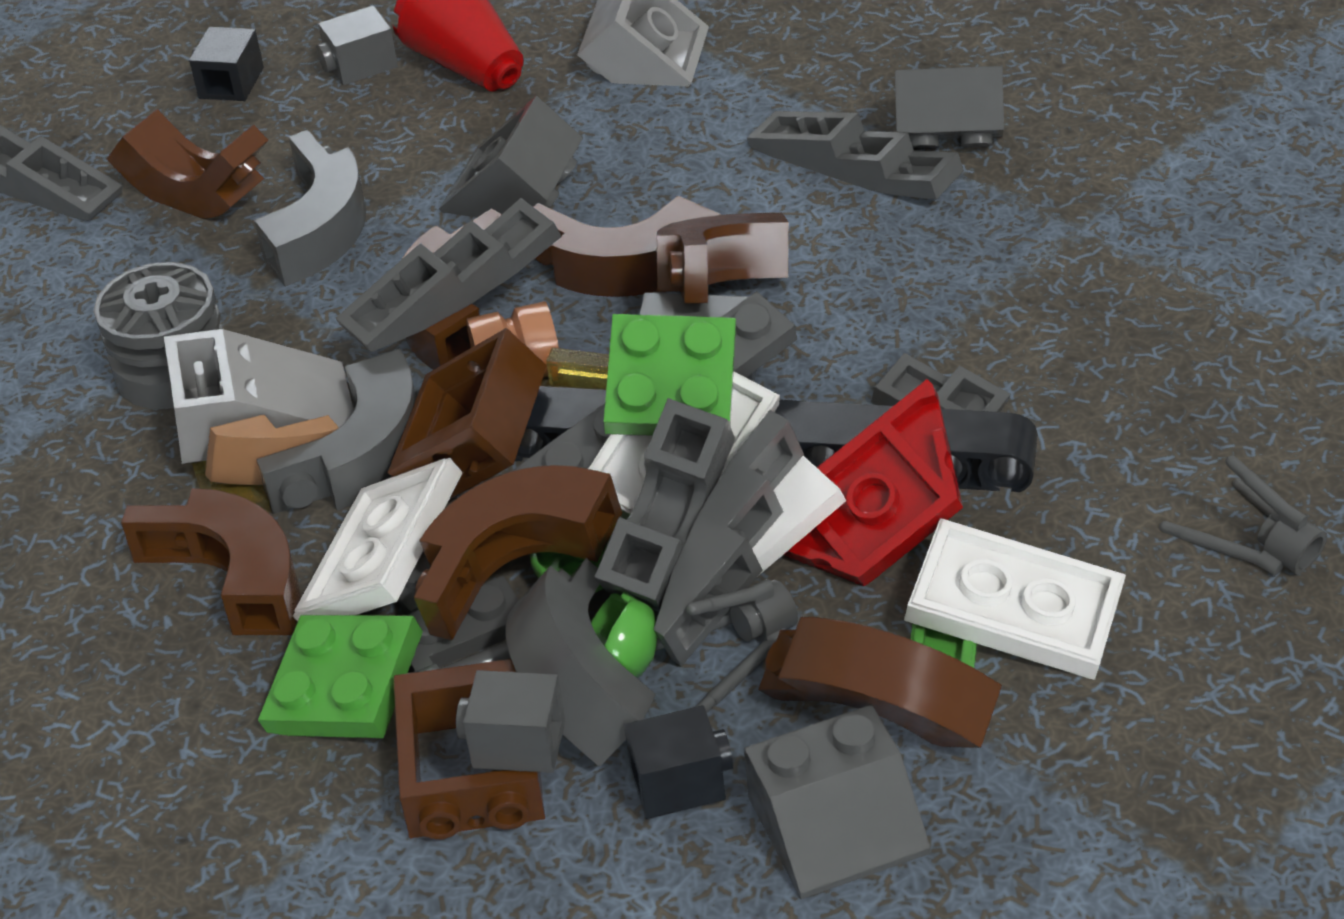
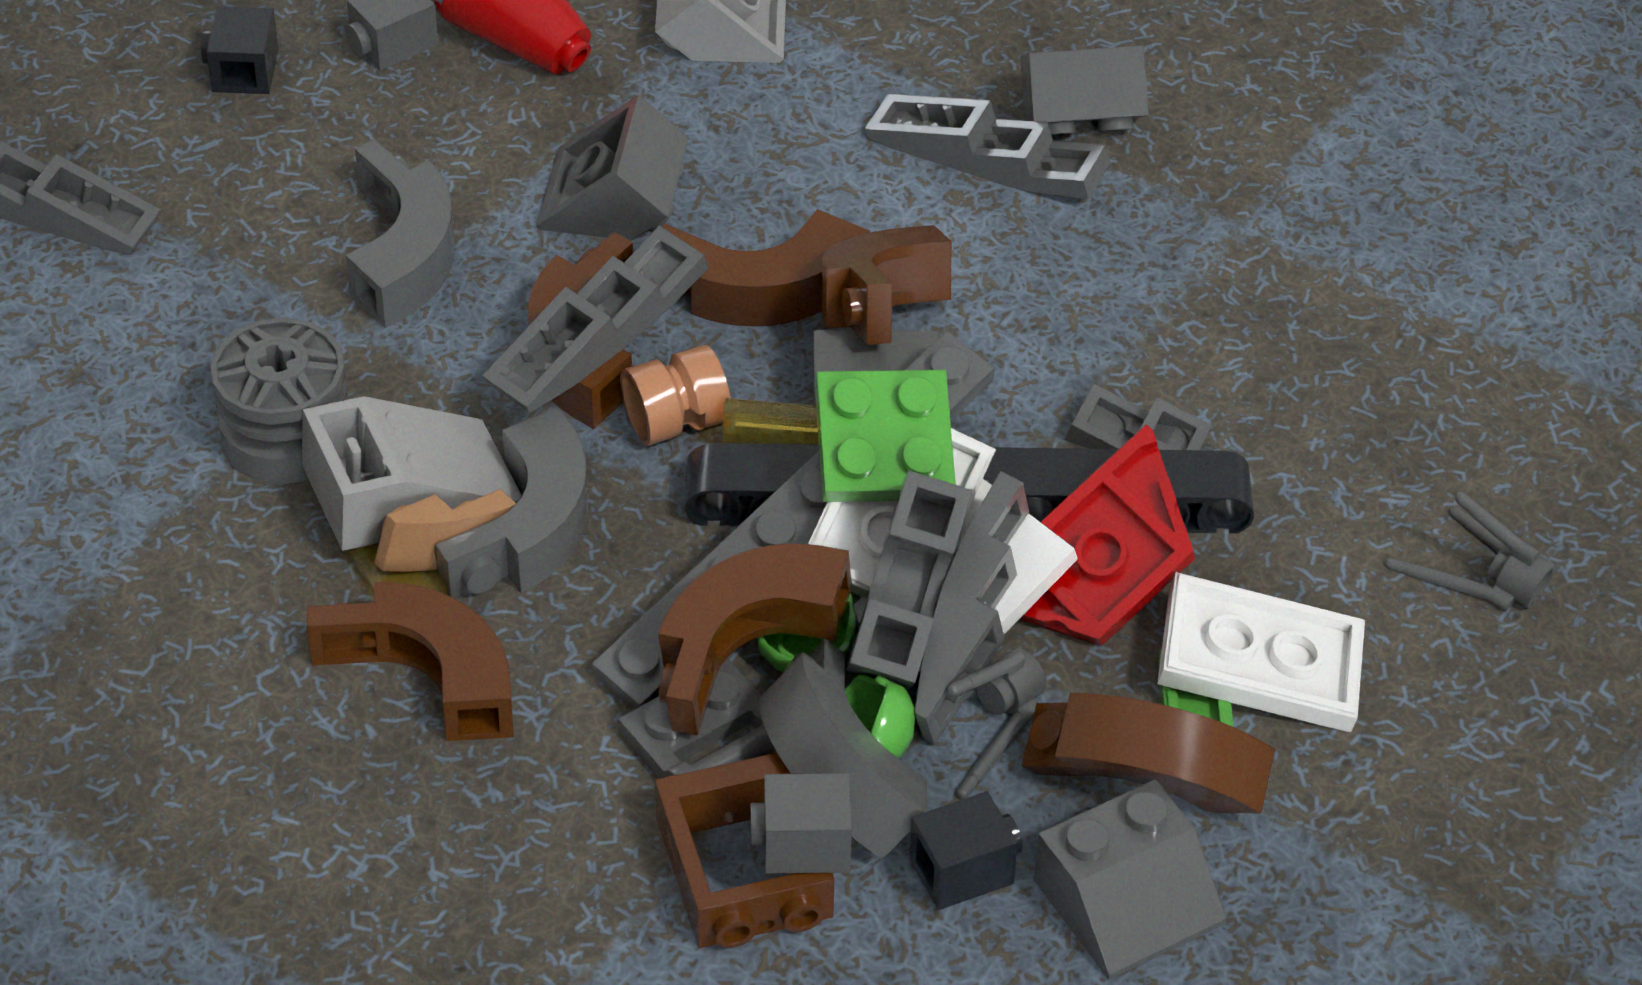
camera: 15 degrees left, 5 degrees up
(183, 175) = (239, 199): reddish brown arch -> none
(340, 676) = (587, 781): bright green plate -> none
(379, 542) = (591, 633): white tile -> none
(473, 411) = (639, 538): reddish brown window -> none

